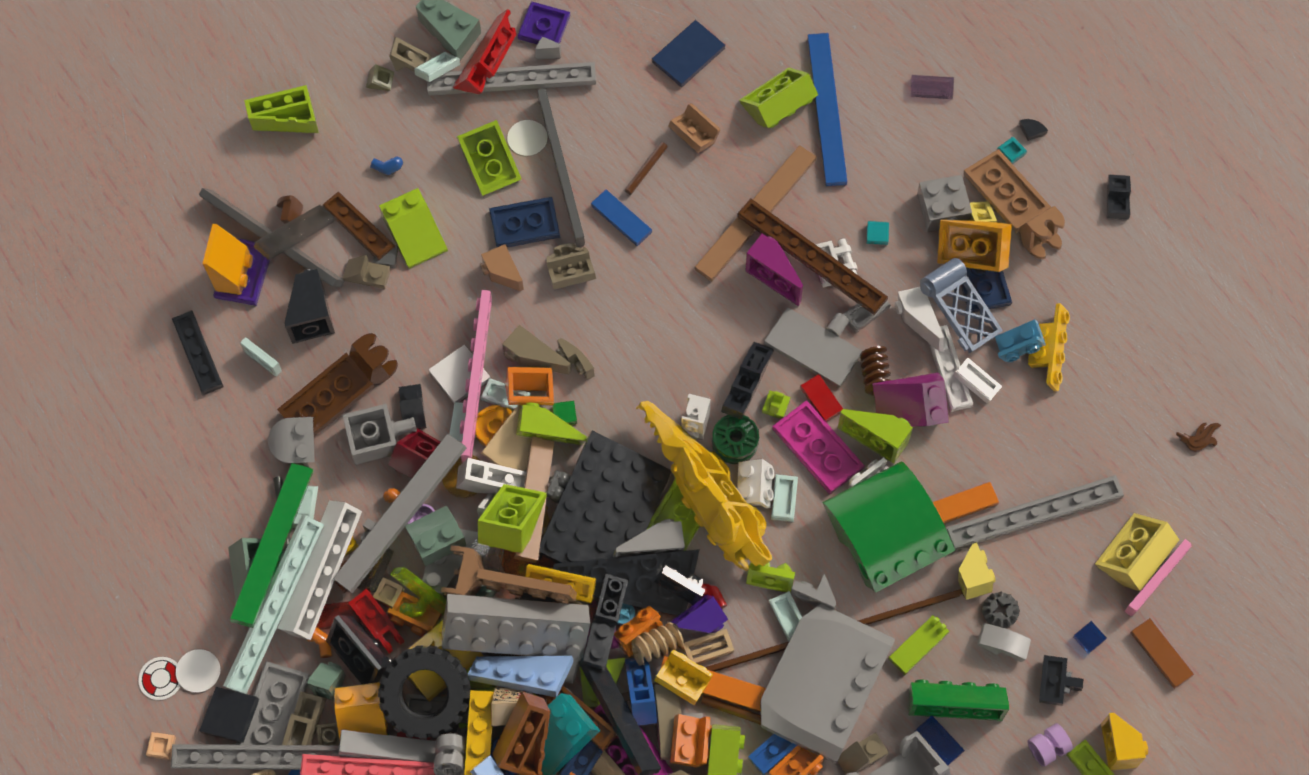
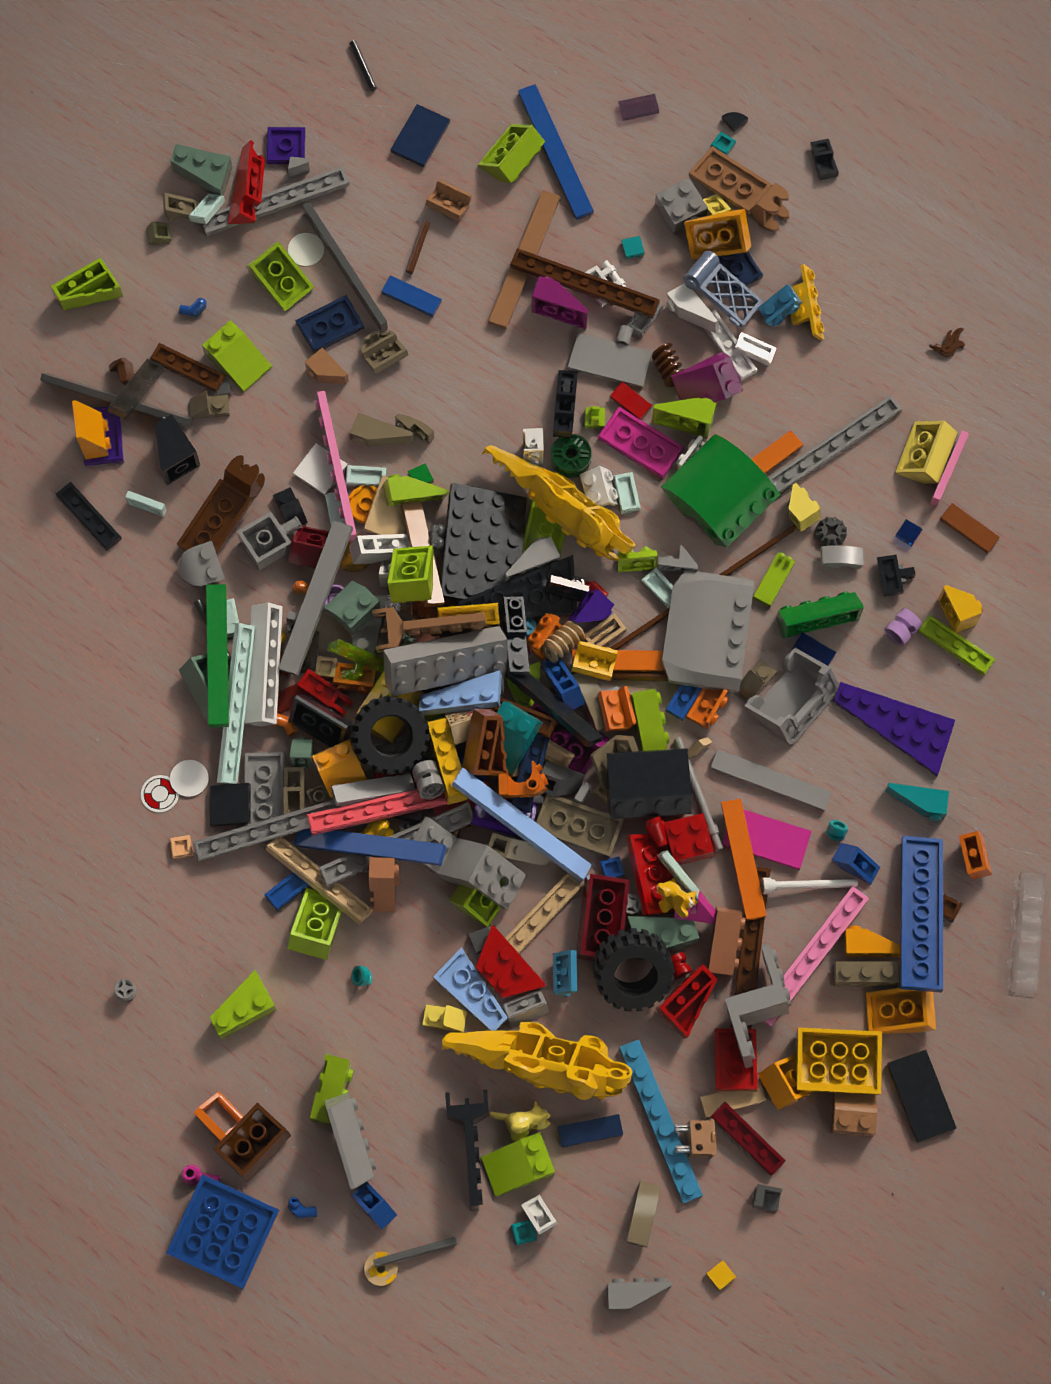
camera: 20 degrees left, 5 degrees up
(529, 380) = (384, 456): orange tile -> none

